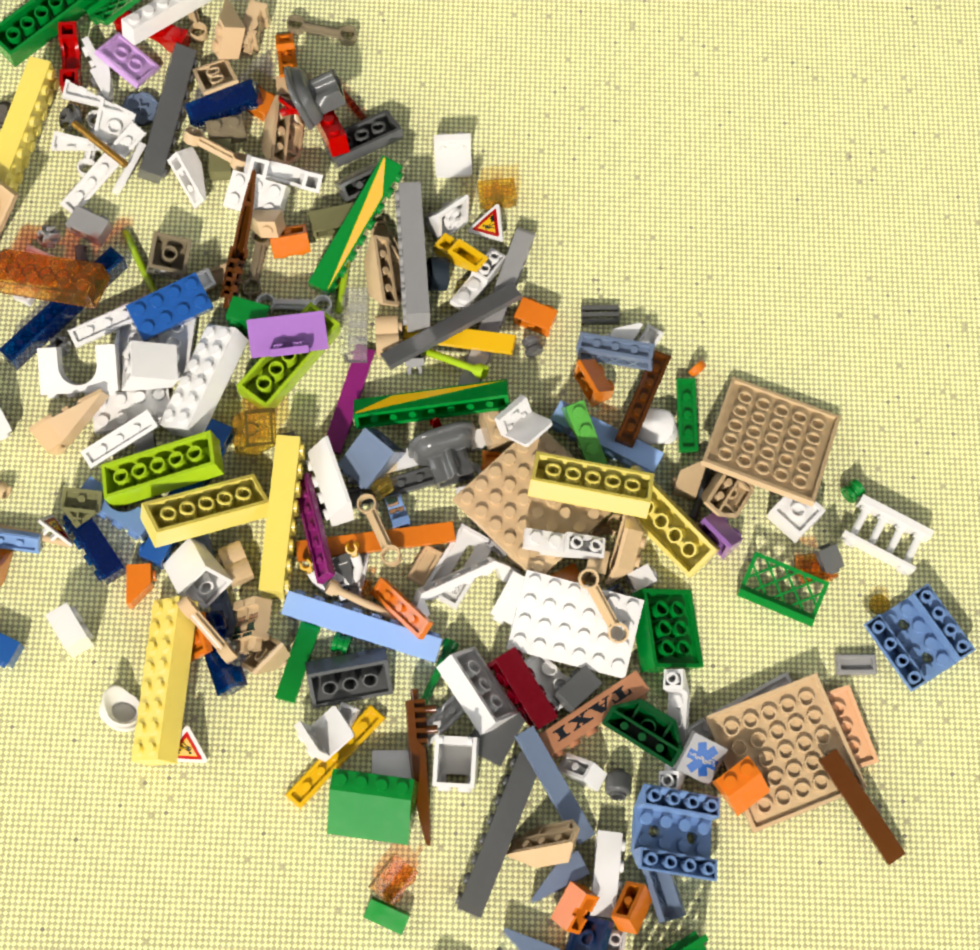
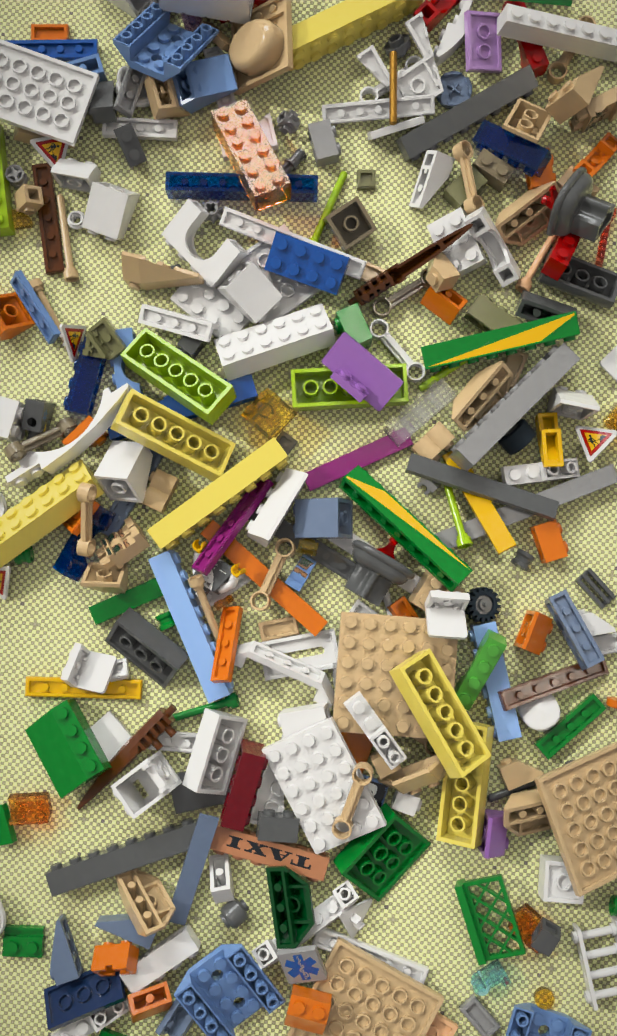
camera: 55 degrees right, 15 degrees up
(84, 602) = (37, 411): none -> dark grey torso
(102, 638) = (17, 450): none -> dark tan piece
(124, 636) = (36, 463): none -> white slope
(145, 221) = (366, 180): none -> olive tile
(189, 712) = (25, 556): none -> green wheel
(329, 176) = (525, 282): none -> light nougat piece
(542, 399) = (482, 604): none -> black wheel
(698, 693) = (353, 917): none -> white piece
(828, 630) = (489, 977): none -> clear light blue leg

